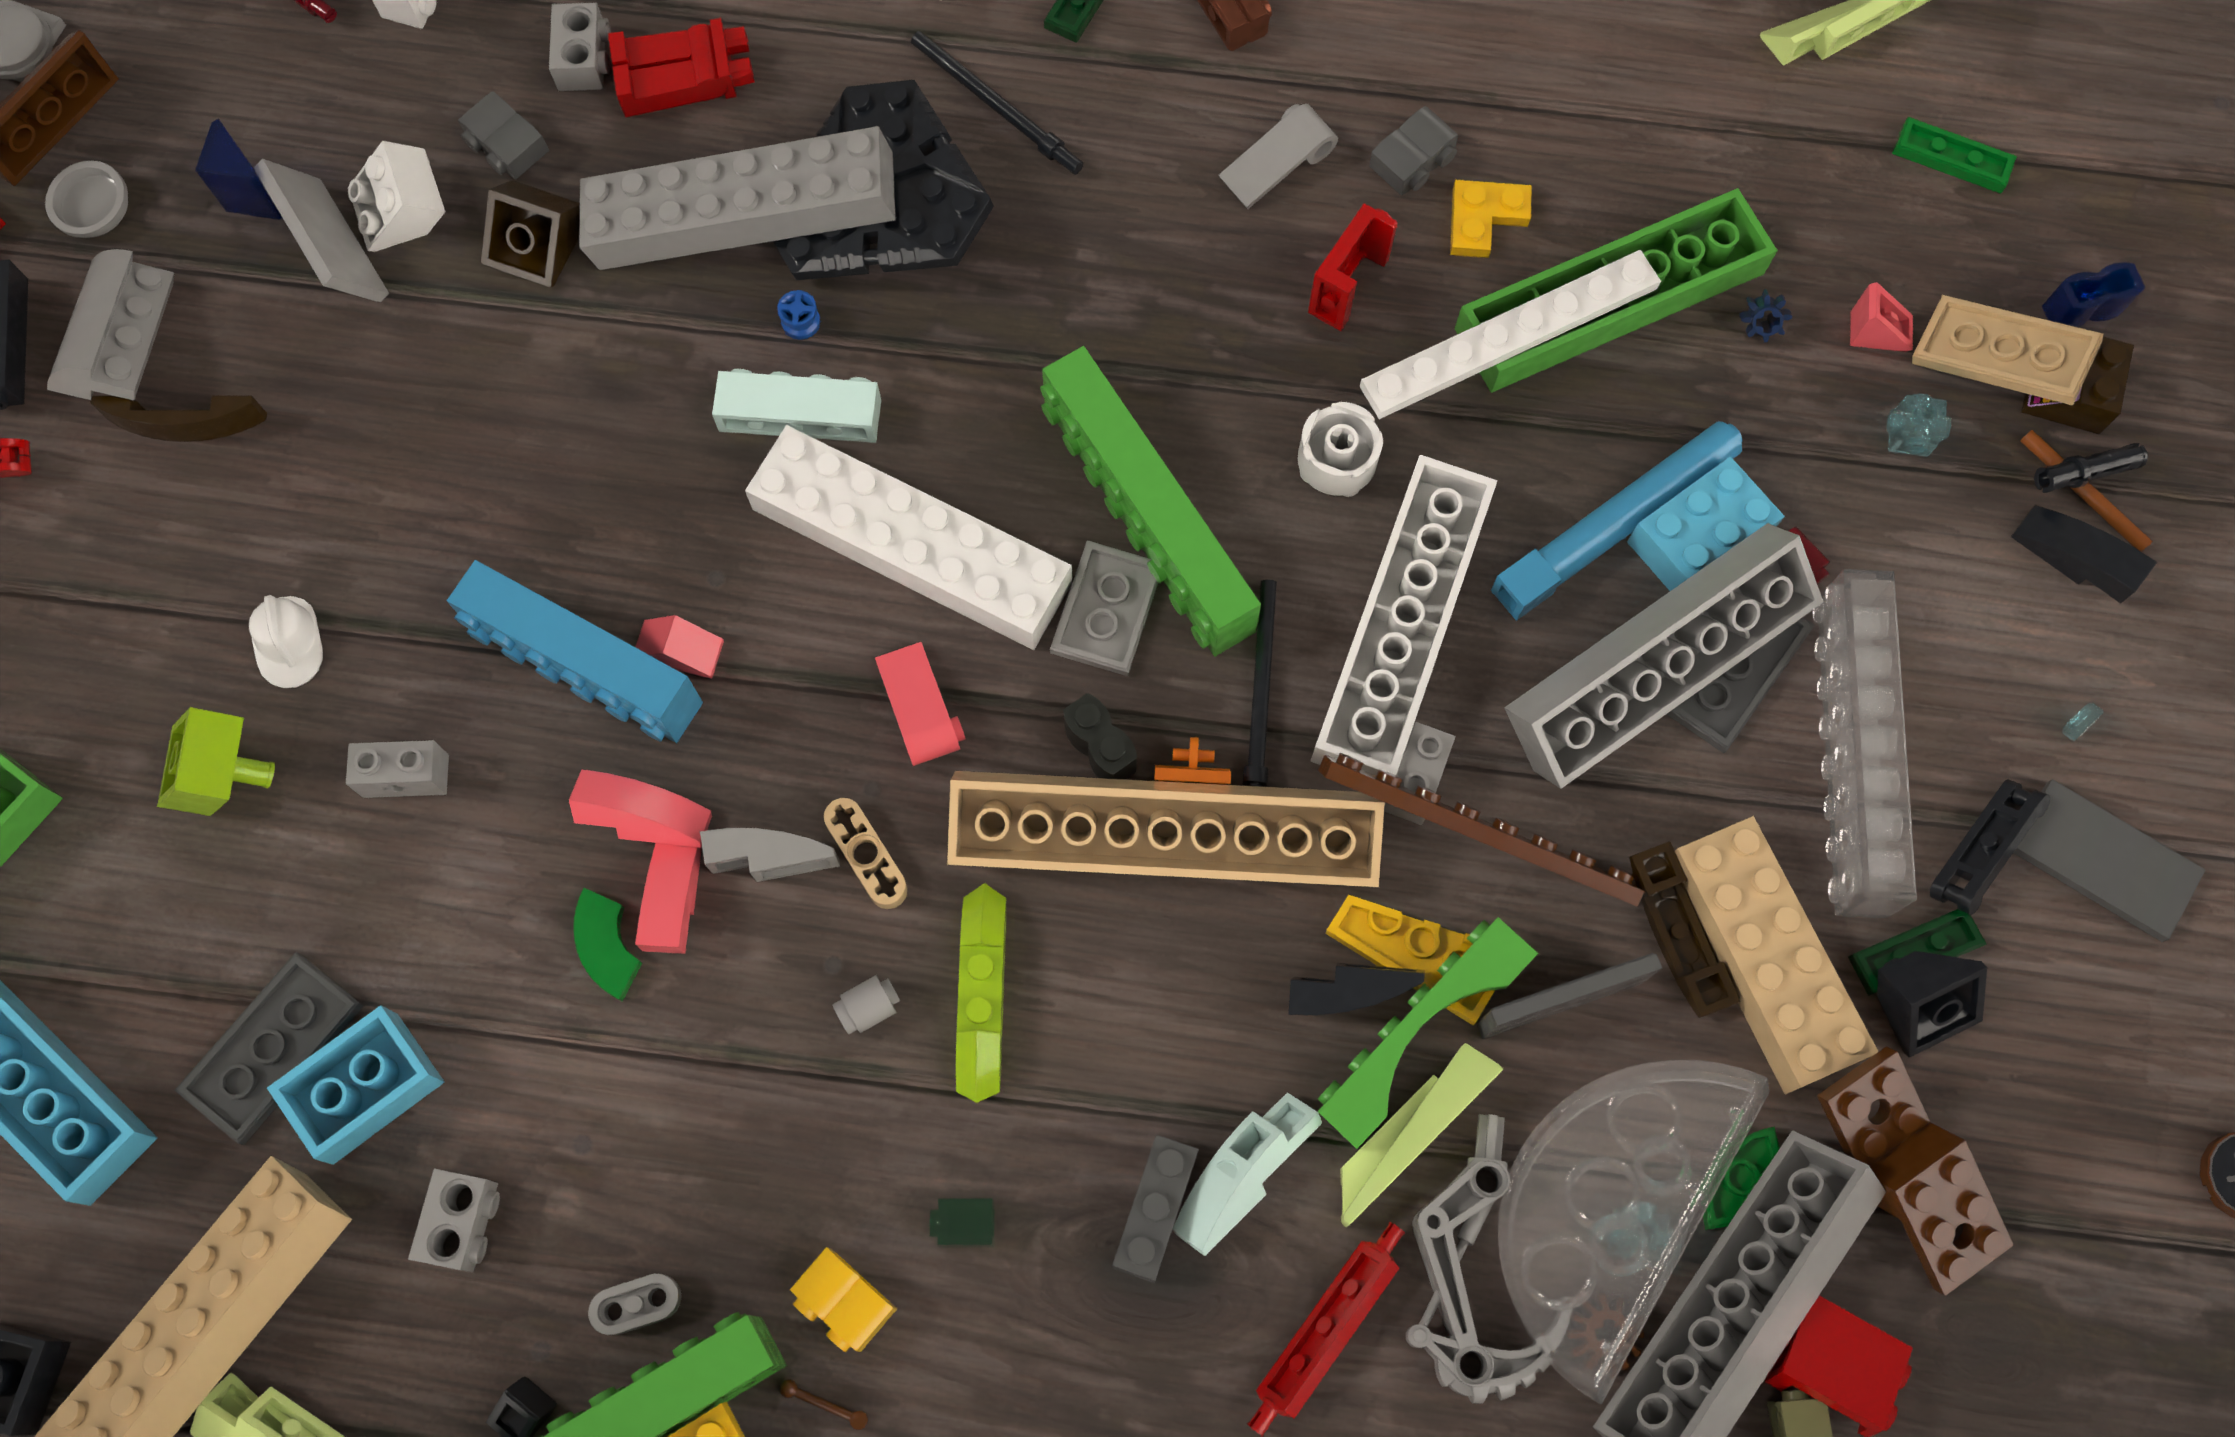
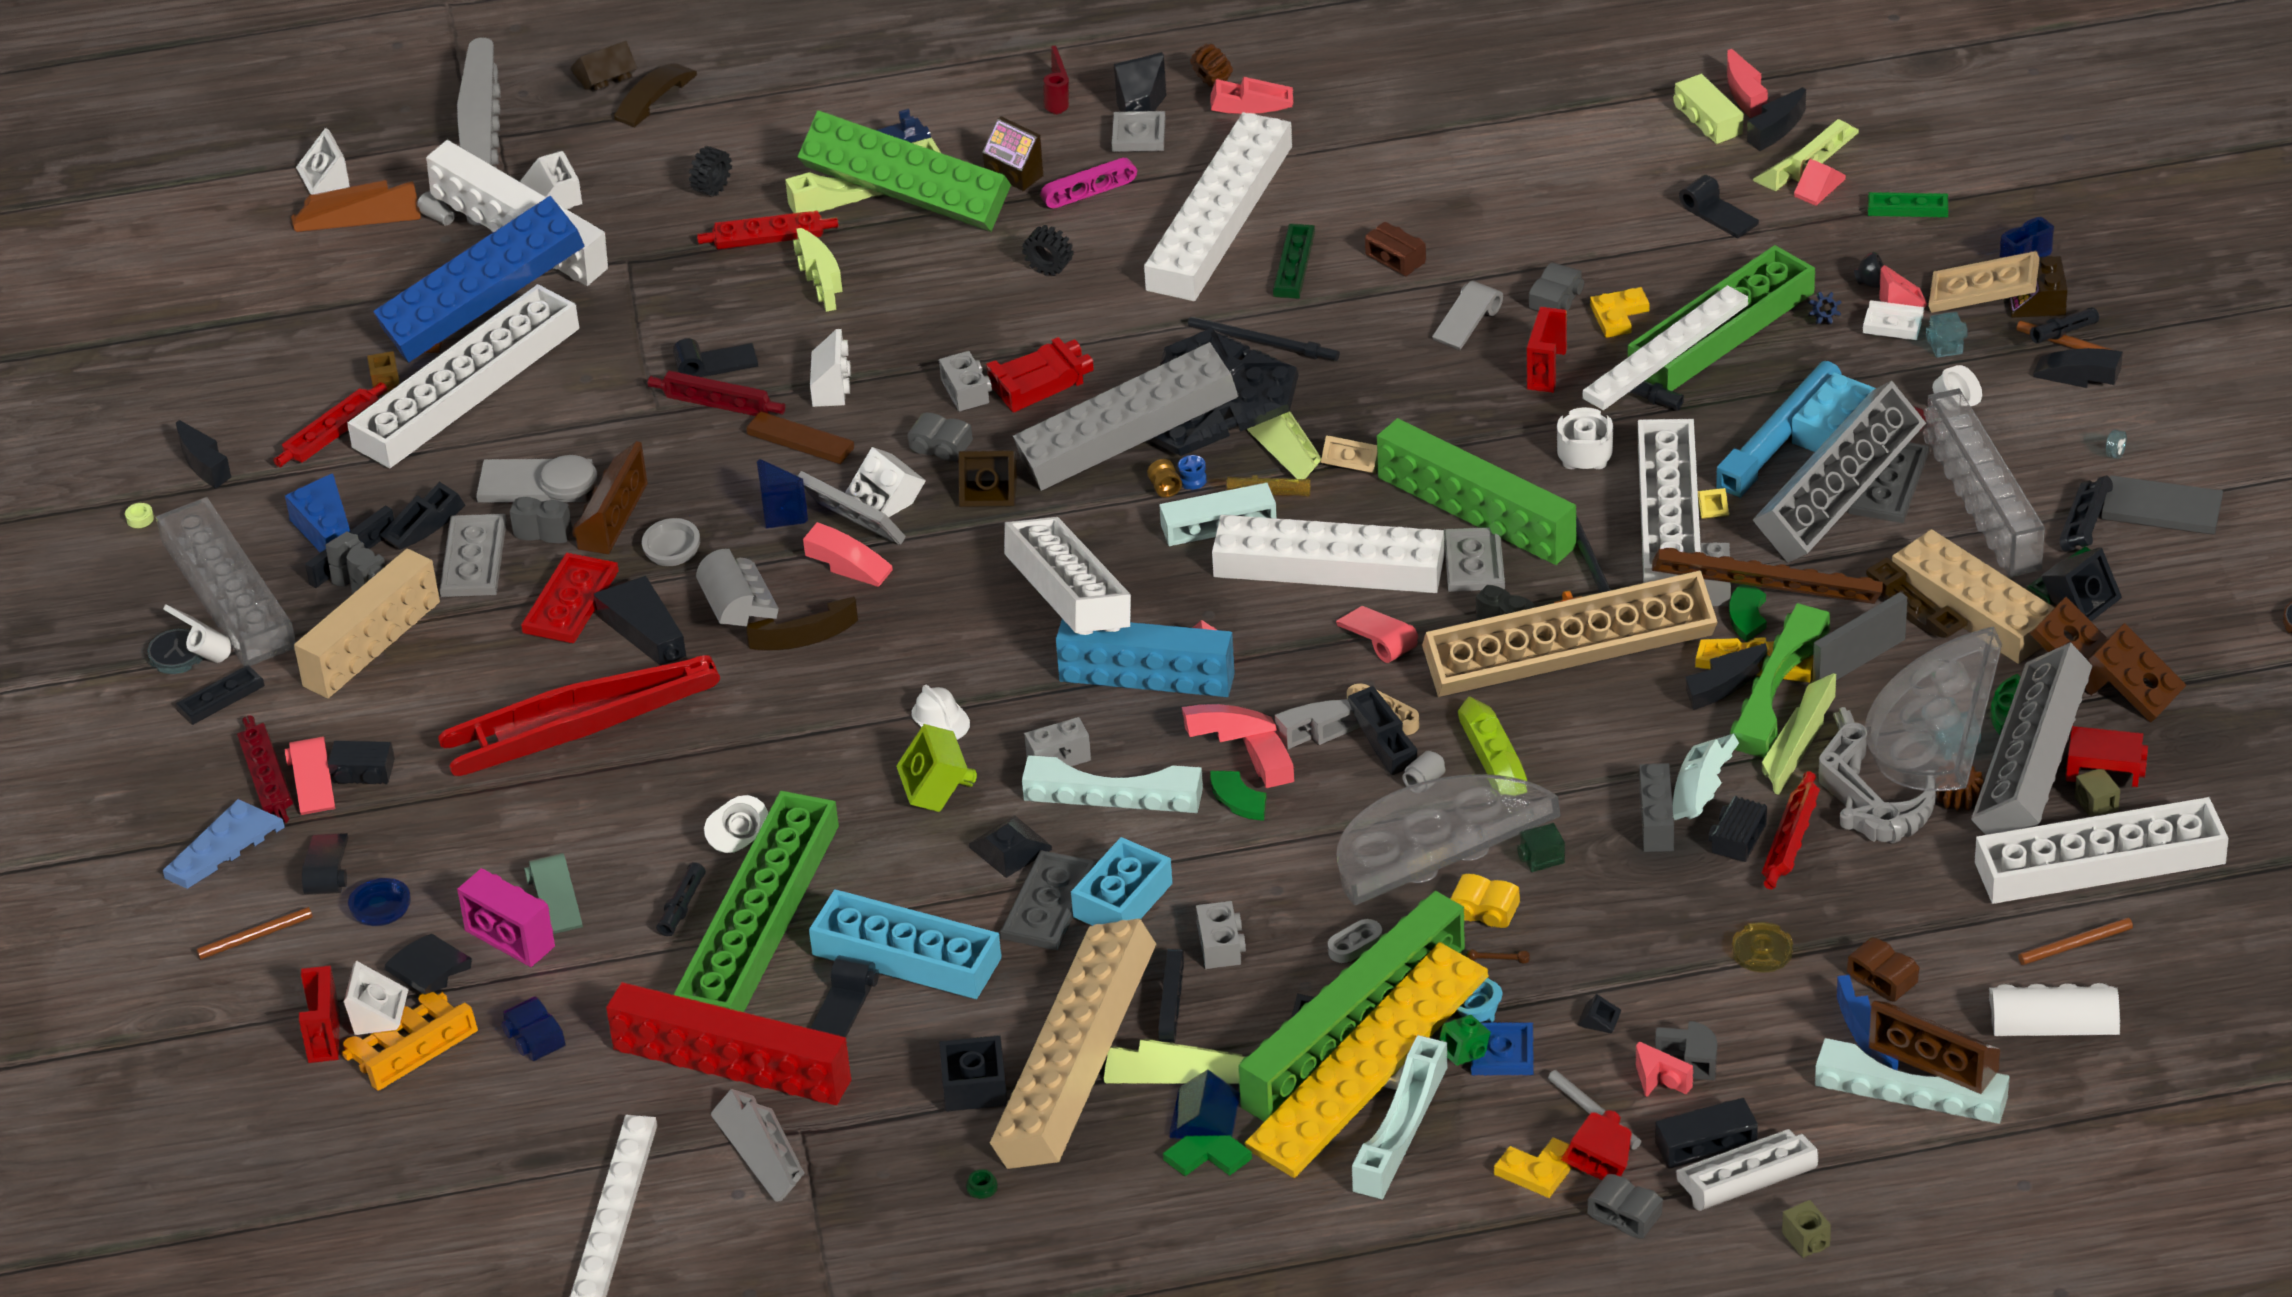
camera: 15 degrees left, 30 degrees down
(263, 923) = (1009, 846): none -> black slope
(289, 307) = (846, 555): none -> coral slope
(336, 70) = (800, 437): none -> reddish brown tile
(339, 1316) = (1171, 995): none -> black beam
(513, 487) = (1067, 575): none -> white brick
(514, 905) = (1166, 790): none -> light aqua arch
(756, 318) = (1164, 477): none -> pearl gold wheel
(817, 1138) = (1433, 826): none -> clear plate
(837, 909) = (1383, 729): none -> black slope
(887, 376) = (1278, 486): none -> clear yellow pin
(948, 314) = (1288, 444): none -> yellowish green wedge
(1019, 353) = (1350, 454): none -> tan panel
(1255, 1295) = (1738, 828): none -> black brick
(1433, 859) = (1745, 612): none -> green tile
(1471, 624) = (1713, 503): none -> light yellow slope
(1474, 391) = (1657, 394): none -> black pin
(1678, 59) = (1703, 200): none -> black door
(1845, 74) = (1817, 182): none -> coral slope
(1853, 367) = (1893, 320): none -> white plate
(1856, 267) = (1869, 270): none -> black brick
(1893, 536) = (1961, 378): none -> white piece

